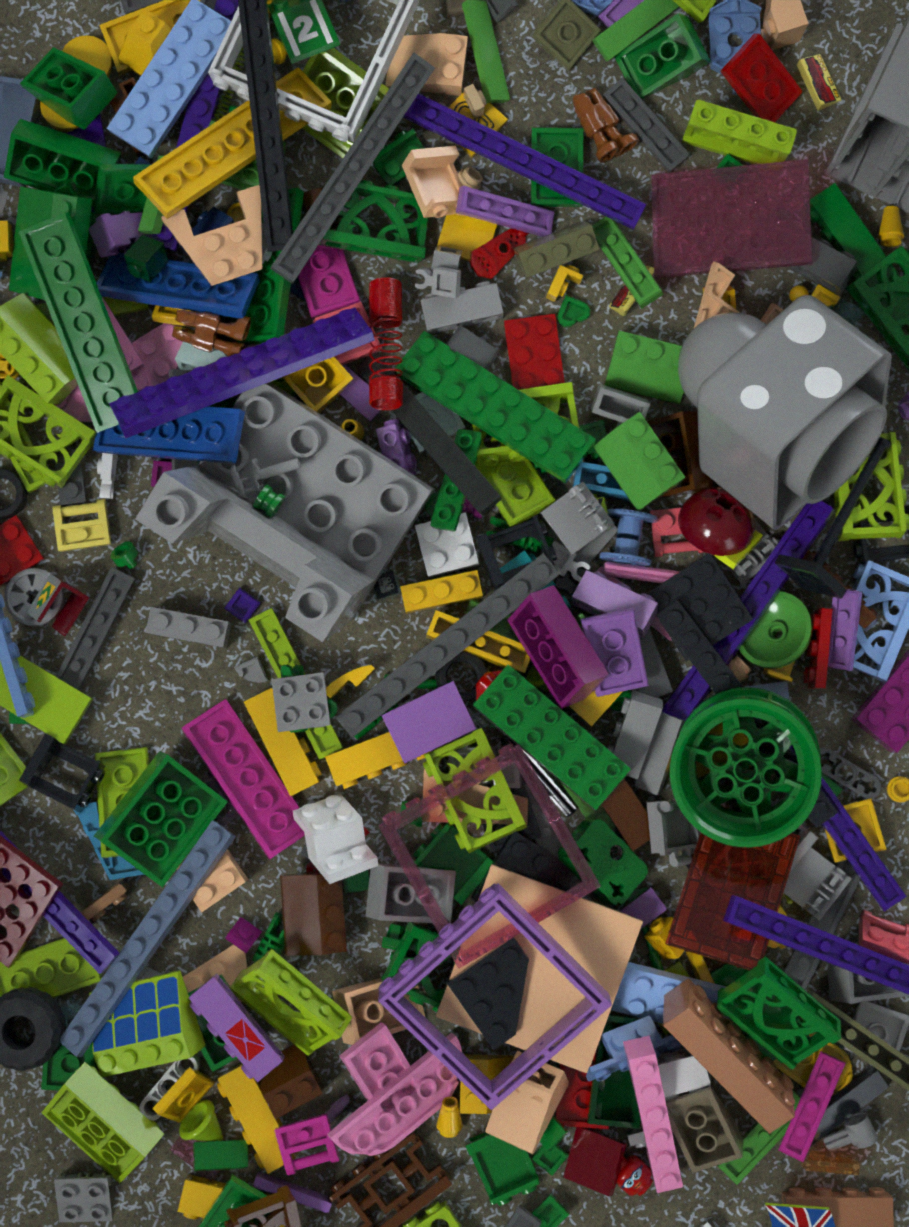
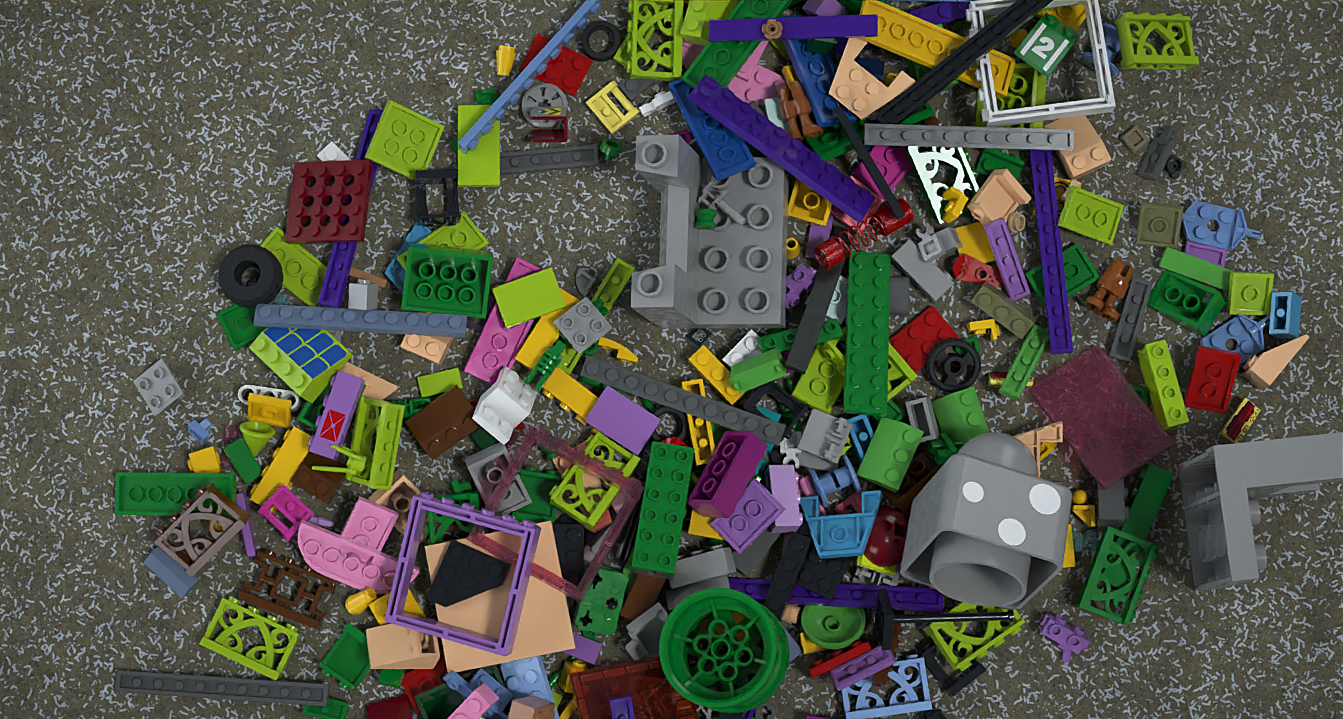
camera: 60 degrees right, 5 degrees down
(102, 1122) = (218, 367): lime slope -> none
(112, 305) = (772, 23): none -> medium nougat plate
(119, 277) = (795, 28): none -> dark purple tile
(121, 919) = (363, 295): none -> light grey brick
(159, 1181) = (200, 431): none -> medium blue tile
(188, 627) = (587, 220): light grey brick -> none
(234, 741) = (529, 298): none -> lime tile
(242, 605) = (625, 248): dark purple tile -> none
(243, 935) = (401, 385): magenta plate -> none
(265, 891) = (439, 382): none -> lime tile
(298, 1036) = (355, 461): none -> lime plant
(315, 290) = (868, 162): none -> black tile
(319, 766) = (546, 365): none -> green hinge
(415, 227) = (956, 204): none -> yellow bracket
(466, 546) = (757, 370): none -> bright green brick
(485, 51) = (1118, 171): bright green tile -> none
(512, 95) = (1090, 215): none -> lime tile
(550, 1160) = (372, 689): green tile -> none
(560, 345) = (970, 358): none -> black wheel
(668, 402) = (943, 448): none -> green hips
(692, 565) = (841, 534): none -> dark azure wing
(891, 227) = (1168, 534): yellow cone -> none

